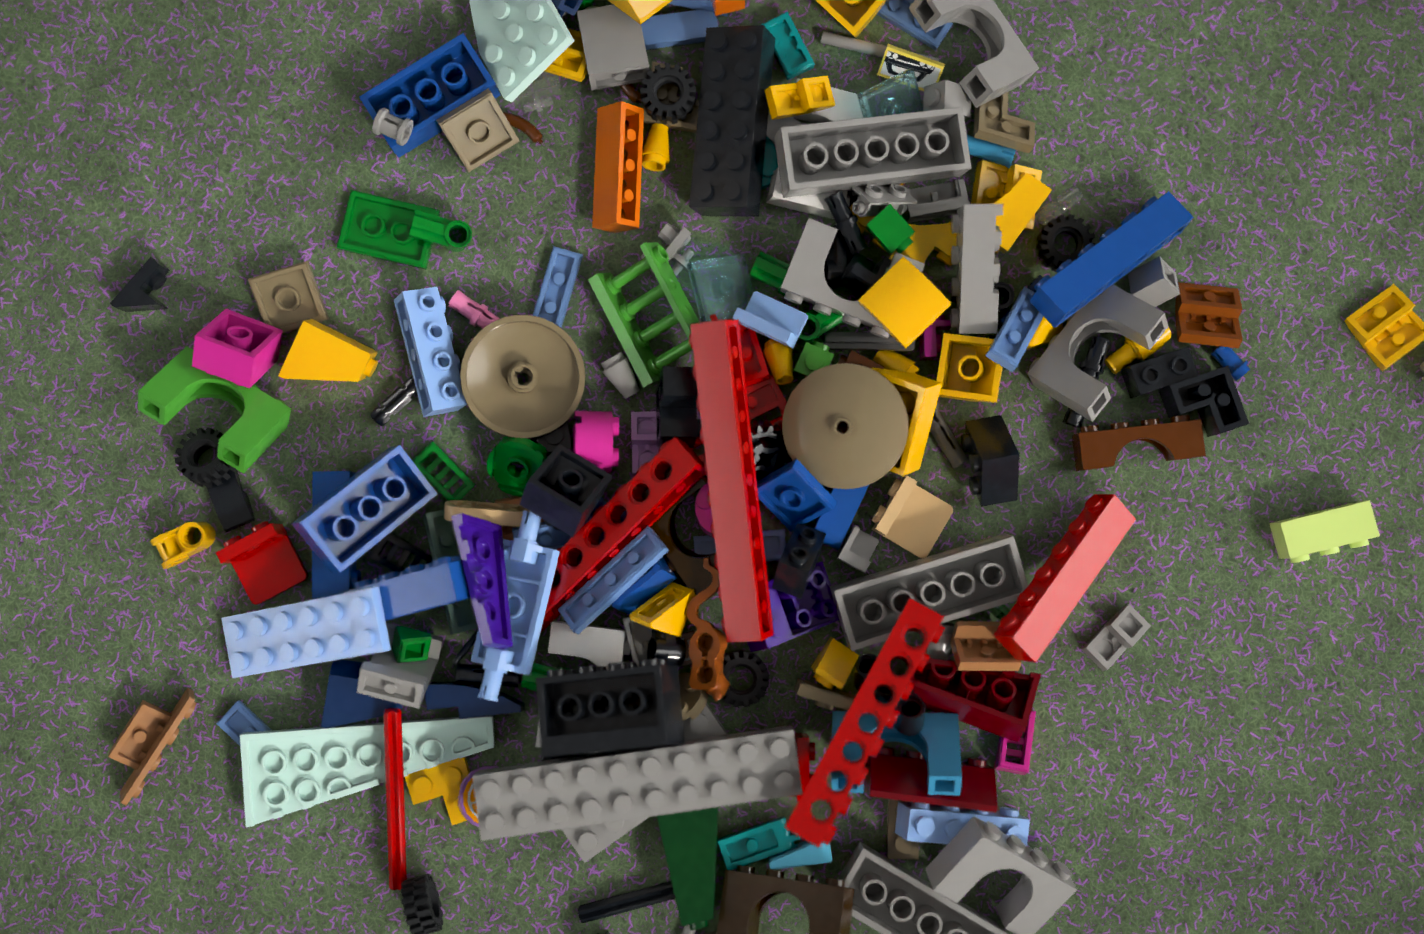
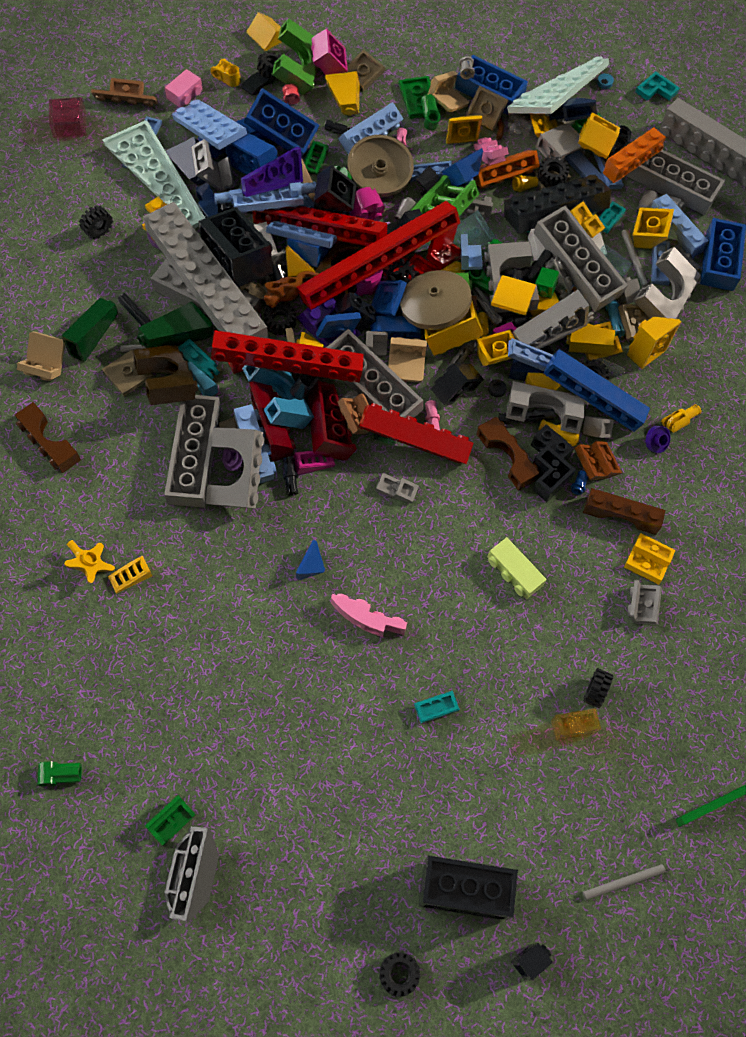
camera: 60 degrees right, 20 degrees down
(115, 427) = (264, 31): none -> yellow slope
(137, 292) = (335, 16): black slope -> none
(161, 865) = (67, 117): none -> clear pink brick
(187, 634) = (183, 88): none -> bright pink brick
(264, 561) = (236, 101): red bracket -> none
(285, 451) = (291, 94): none -> coral wheel
(395, 797) = (148, 190): red axle -> none
(410, 644) = (224, 172): green slope -> none
(416, 181) = (444, 93): none -> tan bracket
(502, 188) = (464, 129): none -> yellow slope
(580, 177) = (492, 151): none -> bright pink slope
(585, 309) = (427, 179): none -> black panel
(596, 239) = (465, 169): none -> blue slope
(824, 605) = (337, 324): none -> blue plate
(898, 60) = (636, 270): tile -> none
(1015, 398) = (497, 388): none -> black tile
(1027, 526) = (432, 416): none -> bright pink pin
(1028, 788) = (290, 476): none -> black pin
(1071, 125) = (652, 339): none -> yellow slope
(1184, 822) = (311, 563): none -> blue slope
(1195, 145) = (680, 418): none -> yellow arm
(1217, 207) = (658, 439): none -> dark purple plate
(1295, 790) = (359, 614): none -> bright pink slope
(1321, 315) = (643, 516): none -> reddish brown arch

